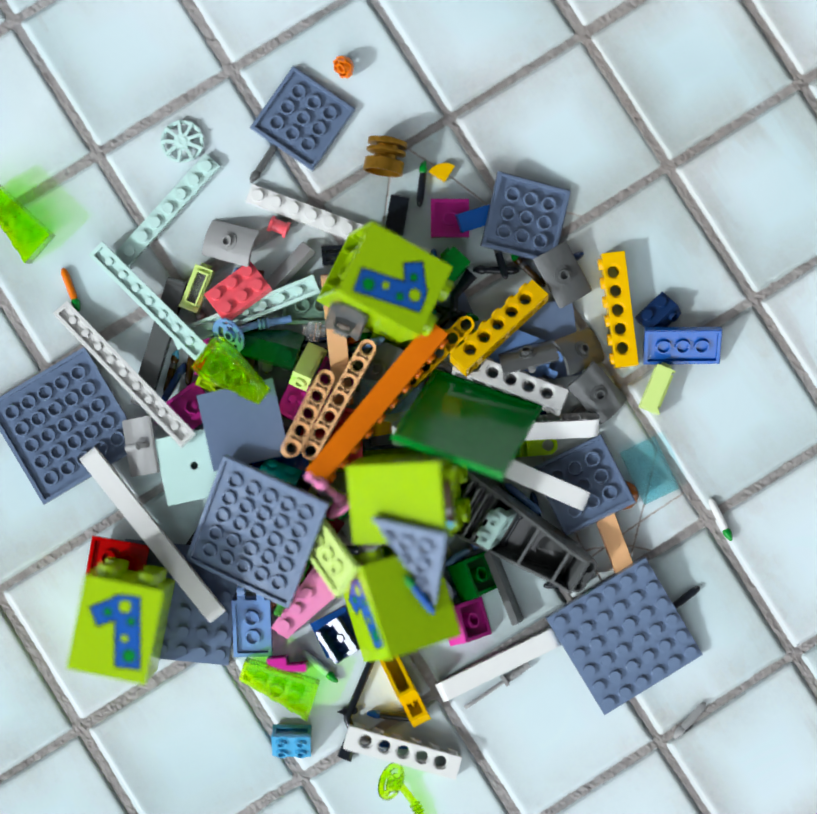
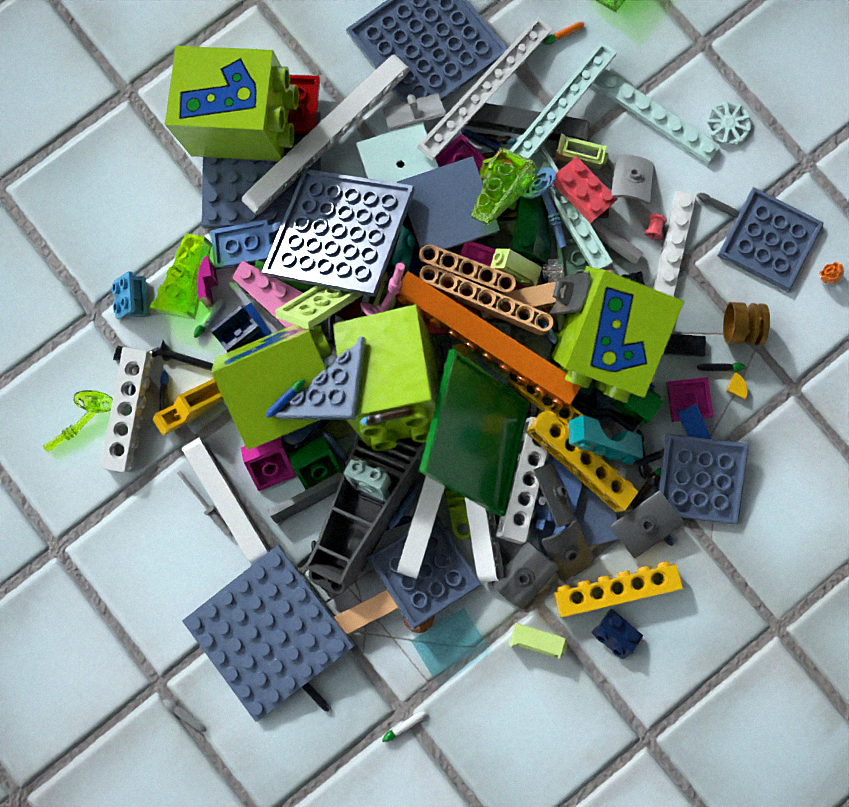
camera: 85 degrees right, 5 degrees down
(478, 320) = (588, 435): none -> teal arch
(682, 345) = (588, 664): tile -> none

